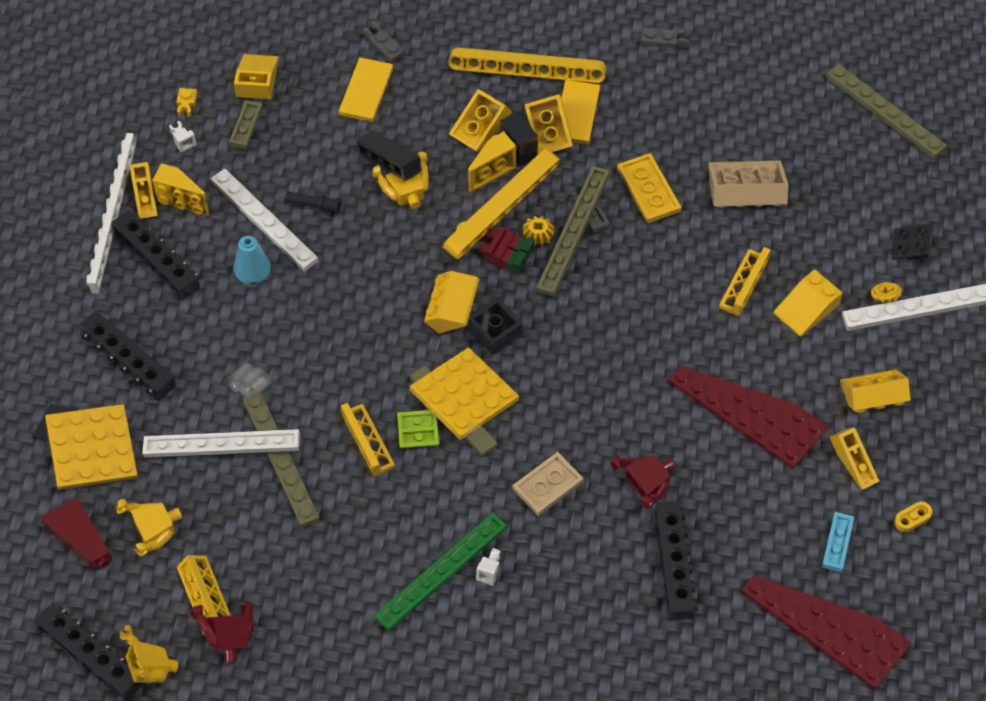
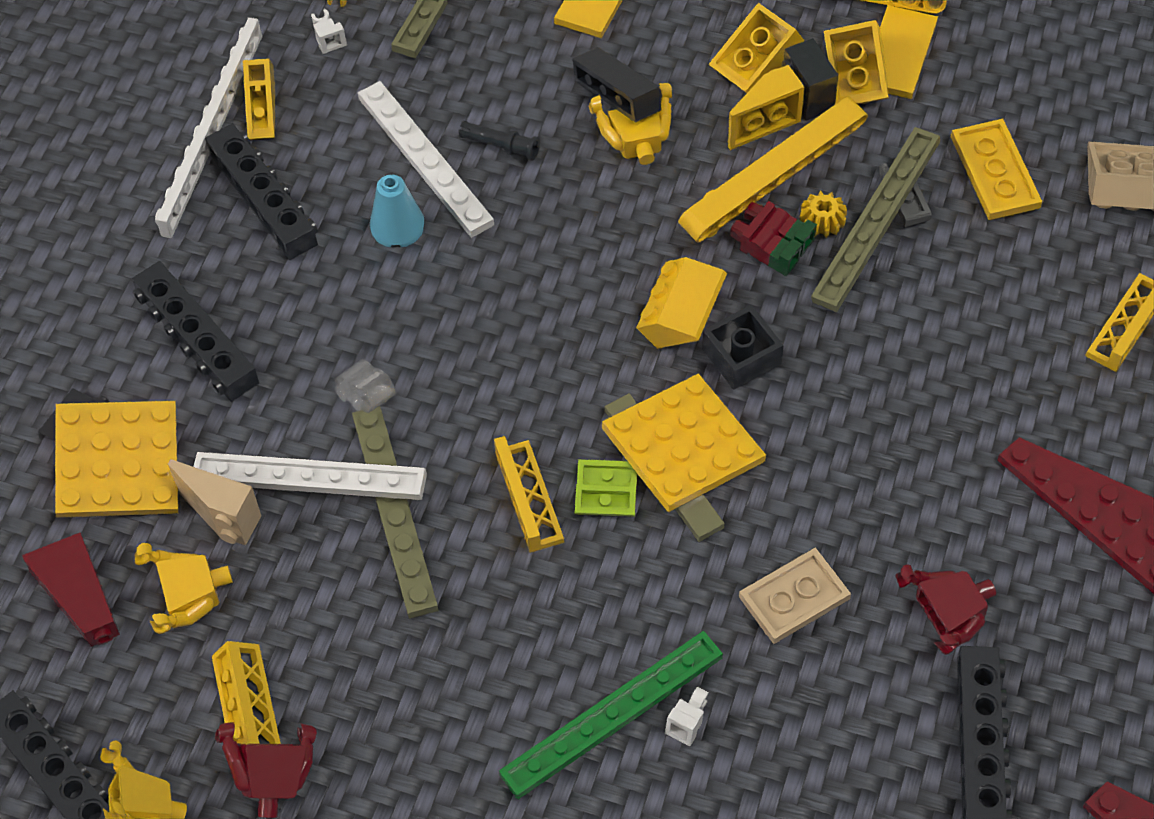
camera: 10 degrees right, 0 degrees up
(164, 466) = (221, 502): none -> tan slope
(178, 190) = (306, 103): yellow slope -> none

